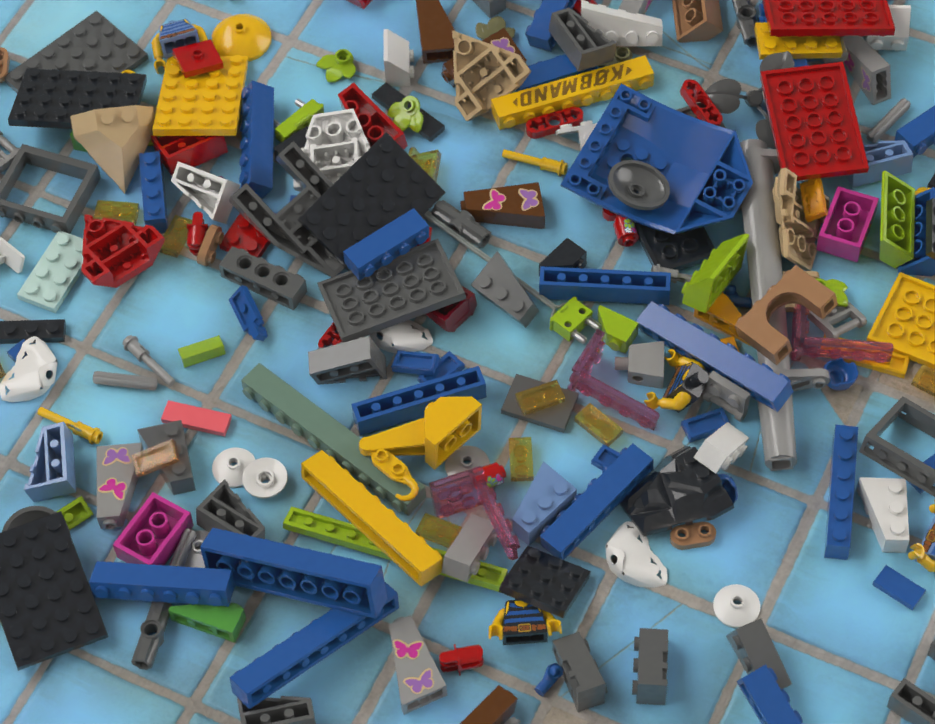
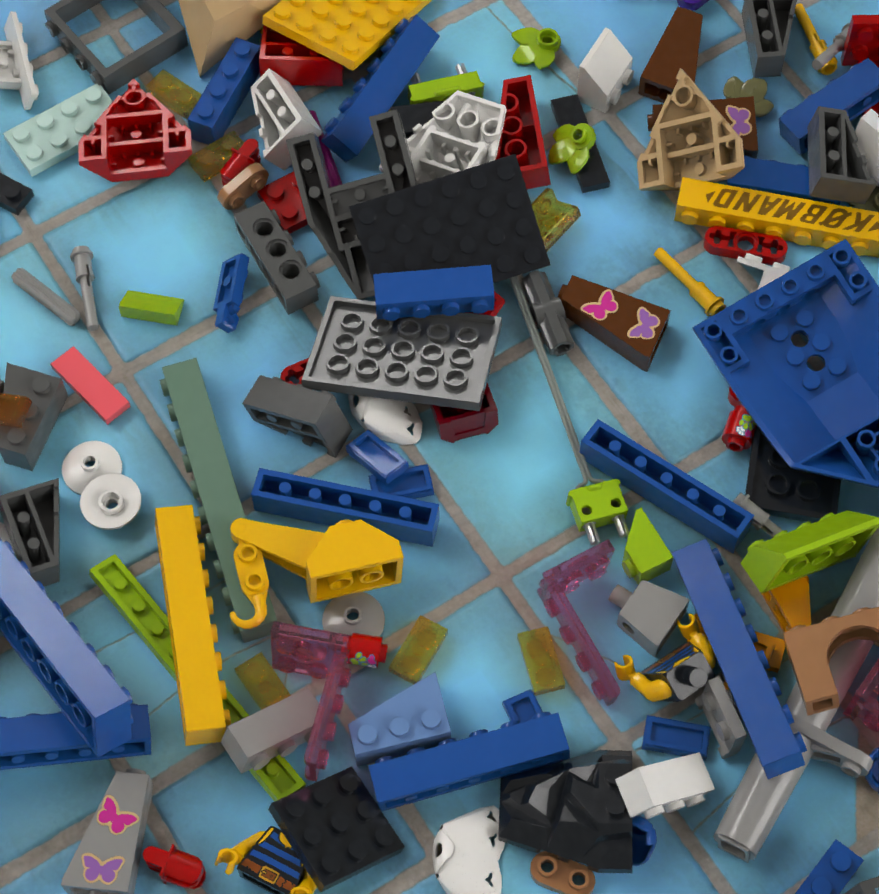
camera: 30 degrees right, 5 degrees up
(505, 291) = (539, 425): dark grey wedge -> none
(540, 397) = (490, 585): clear yellow plate -> none
(553, 417) = (490, 591): dark grey tile -> none
(566, 255) = (641, 423): black slope -> none
(638, 185) = (796, 374): dark grey dish -> none
(738, 301) = (821, 589): blue arm -> none

